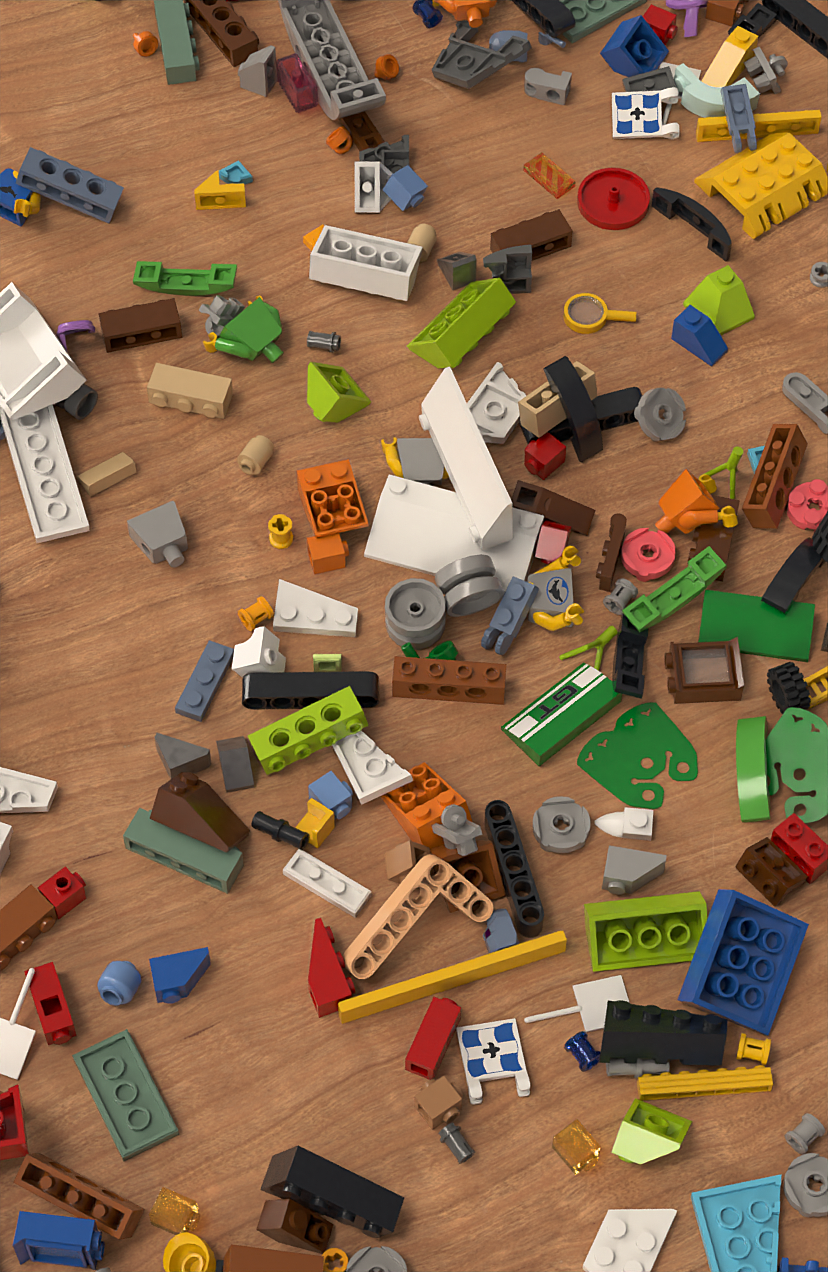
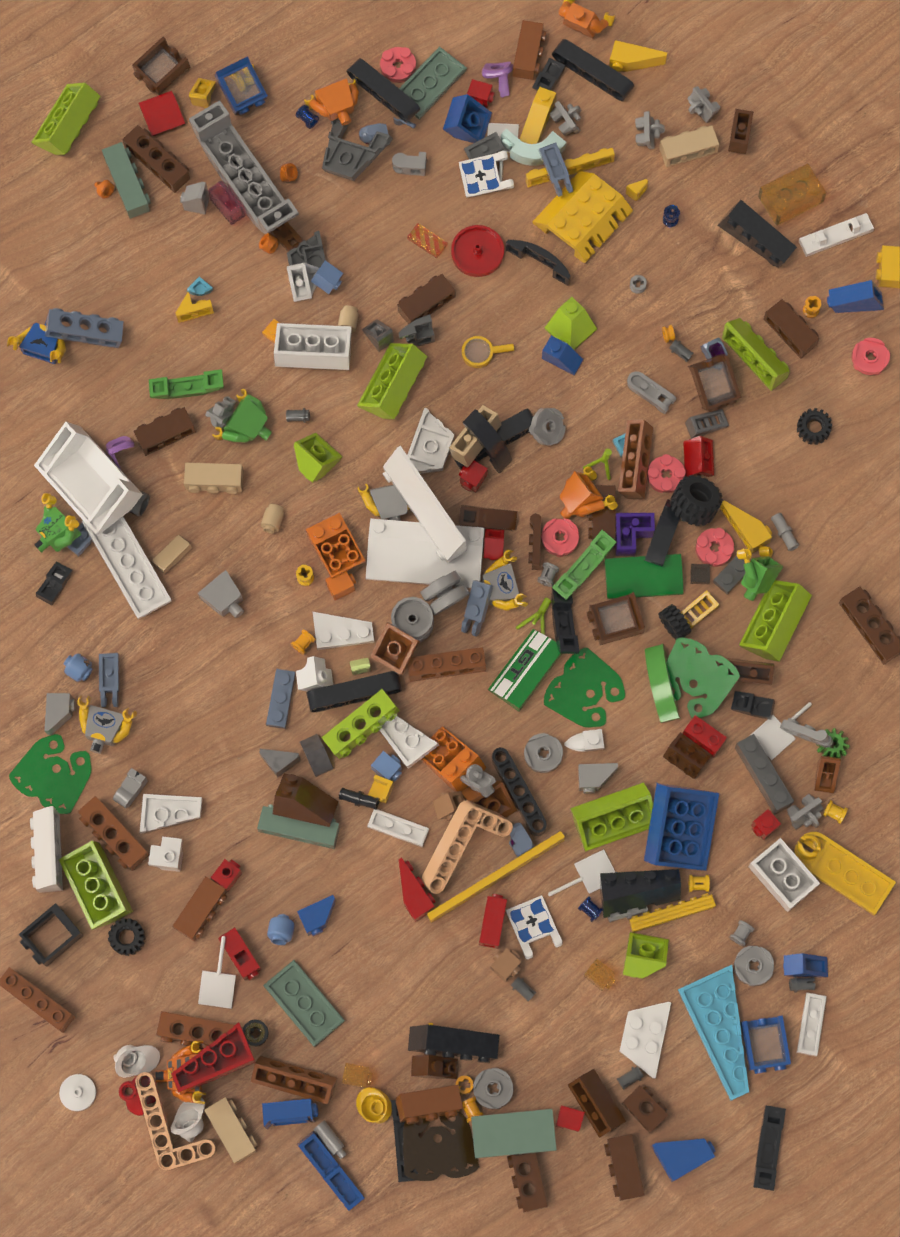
camera: 10 degrees left, 15 degrees up
(34, 1111) = (250, 1027): none -> piece
(380, 638) = (394, 648): none -> dark orange slope
(443, 651) = (436, 645): green plate -> none
(752, 557) = (632, 526): none -> dark purple brick

